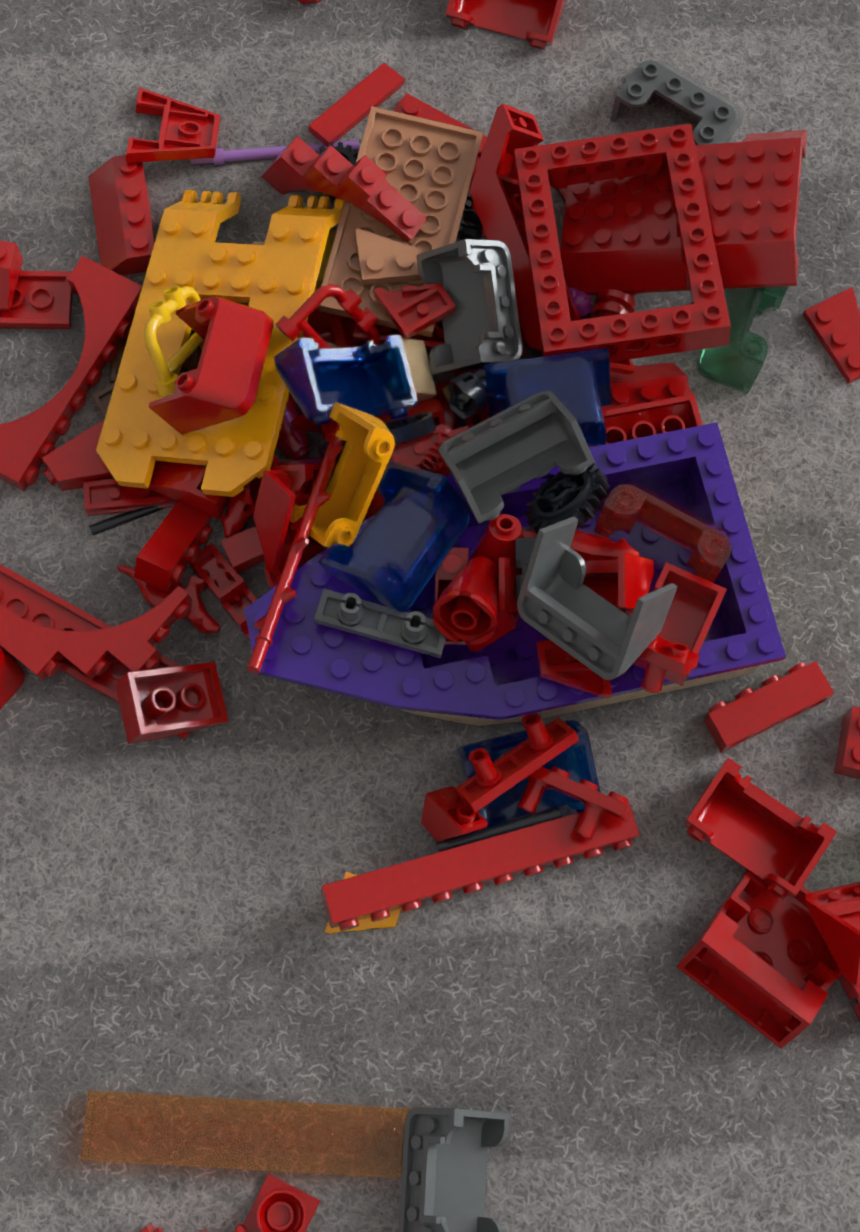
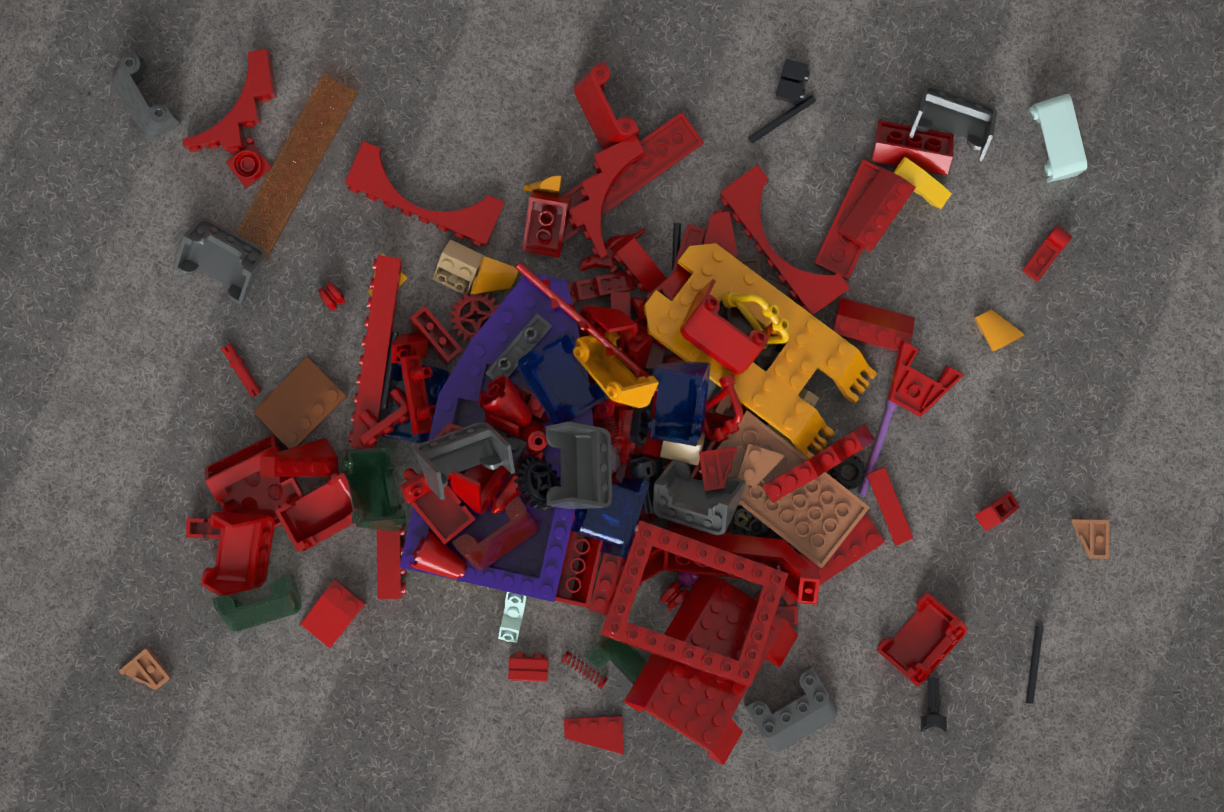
camera: 120 degrees right, 15 degrees up
(61, 72) = (997, 330): none -> light orange slope
(110, 722) = (549, 184): none -> light orange slope
(217, 1002) = (472, 222): none -> red arch
(286, 743) = (493, 276): none -> light orange slope
(295, 804) = (457, 267): none -> tan slope
(368, 736) = (473, 300): none -> red gear
(417, 776) = (438, 338): none -> red brick
(427, 975) = (331, 296): none -> red wheel
(600, 1075) = (241, 370): none -> red pin
(613, 946) = (300, 404): none -> dark orange slope
(689, 763) = (373, 489): none -> clear green windscreen
(703, 892) = (307, 460): none -> red wedge
(749, 603) = (437, 558): none -> red cone
(763, 503) = (512, 617): none -> light aqua slope
(773, 413) = (600, 685): none -> red piece
(810, 452) = (528, 668): none -> red brick

